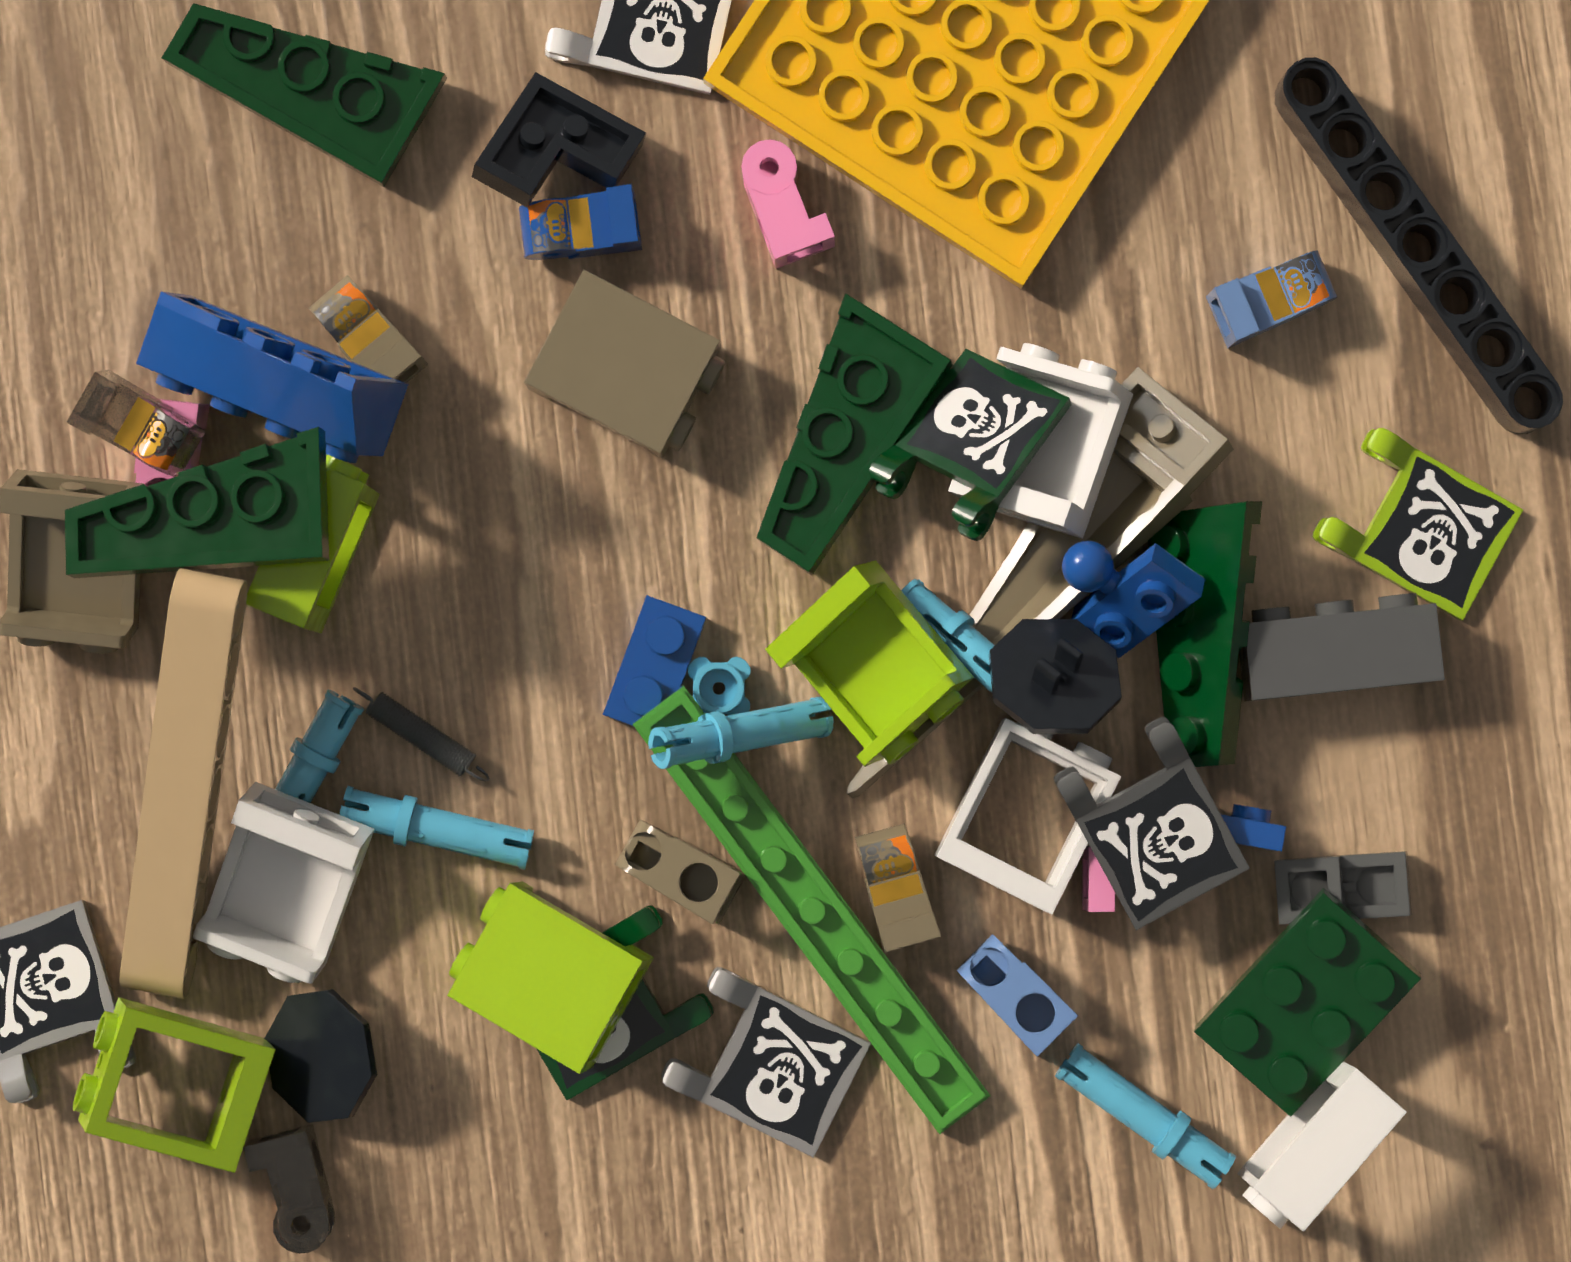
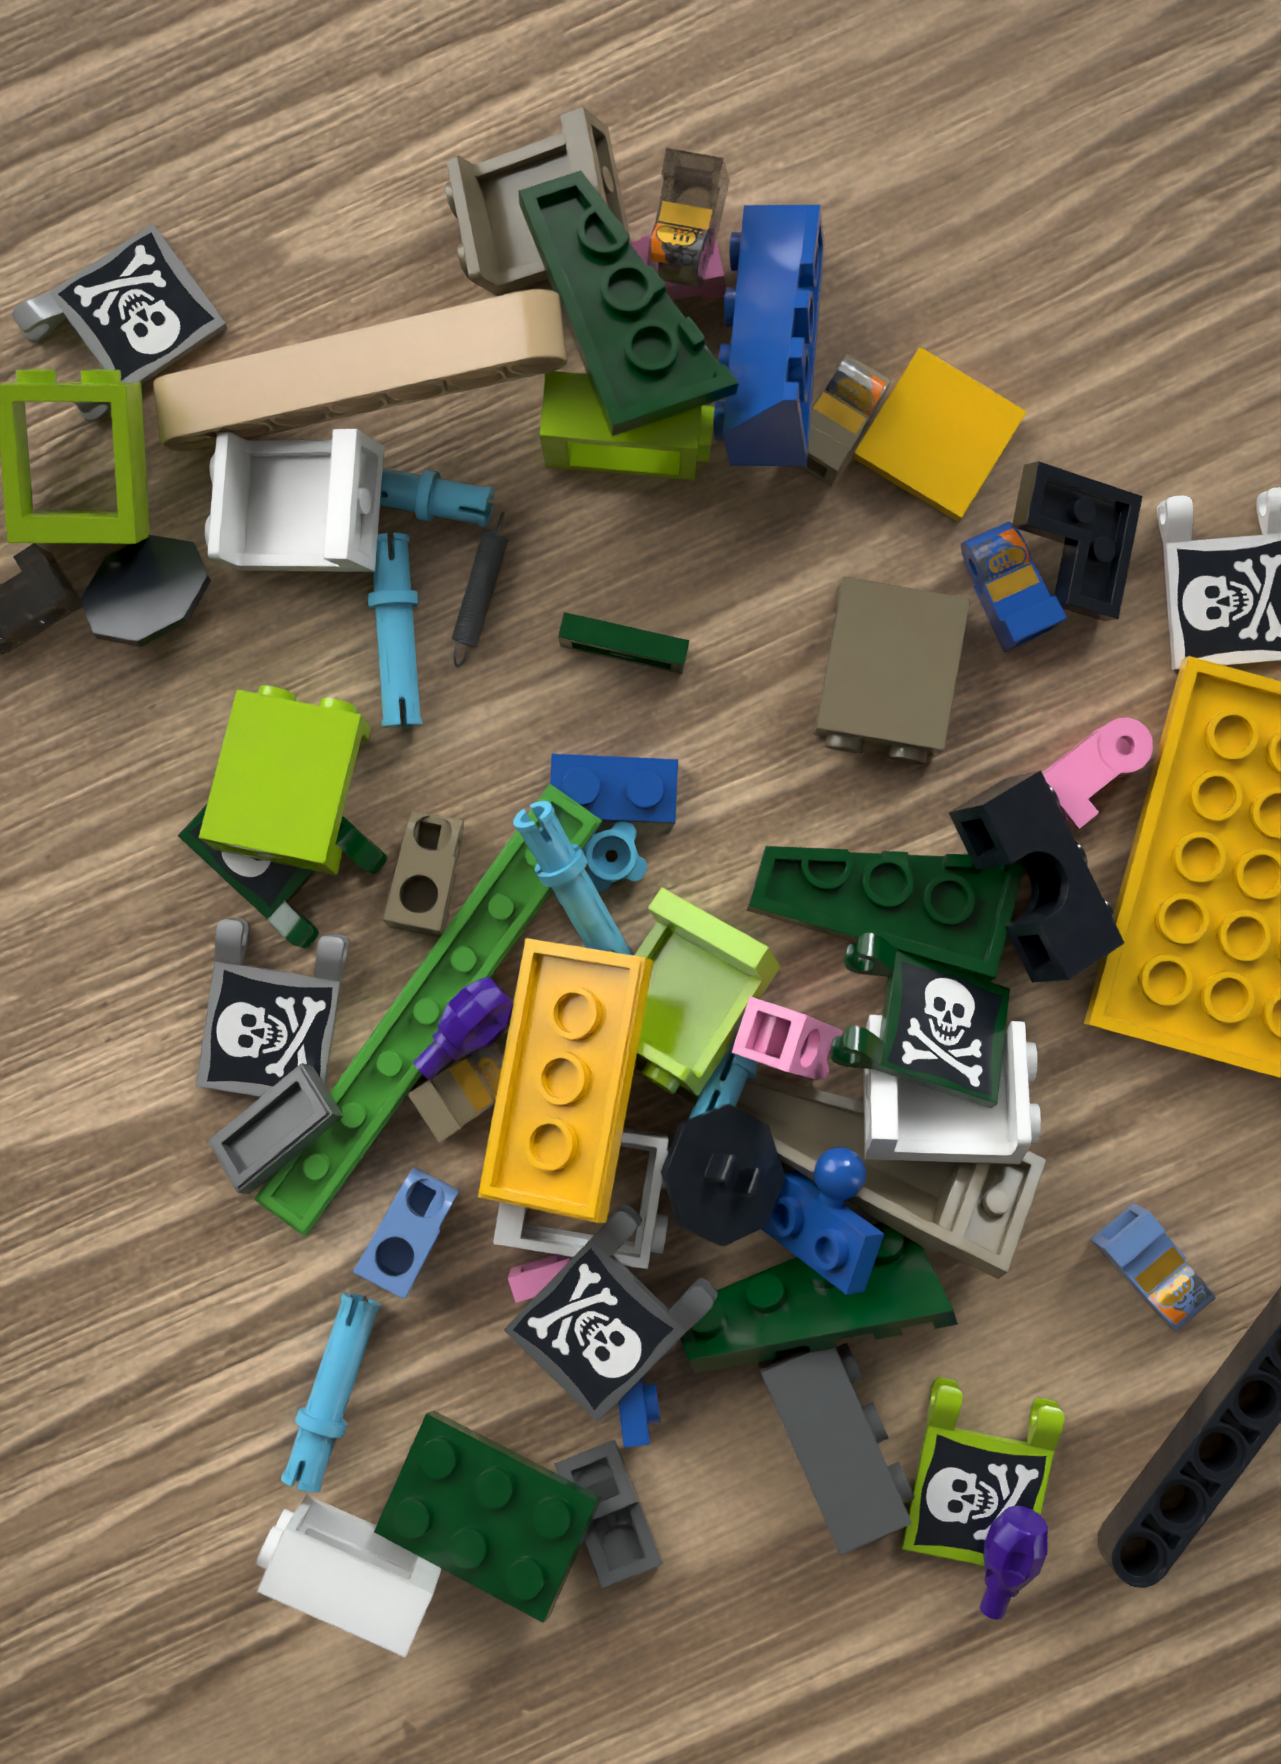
camera: 70 degrees right, 0 degrees up
(327, 95) = (1055, 310): dark green wing -> none
(413, 245) = (939, 434): none -> yellow tile
(519, 611) = (623, 643): none -> dark green tile
(838, 874) = (467, 1025): none -> dark purple piece
(878, 1091) = (275, 1128): none -> tile
(914, 273) = (1067, 917): none -> black arch
(918, 796) = (565, 1080): none -> yellow tile
(946, 577) = (785, 1039): none -> bright pink leg
(1499, 519) = (1012, 1557): none -> dark purple piece

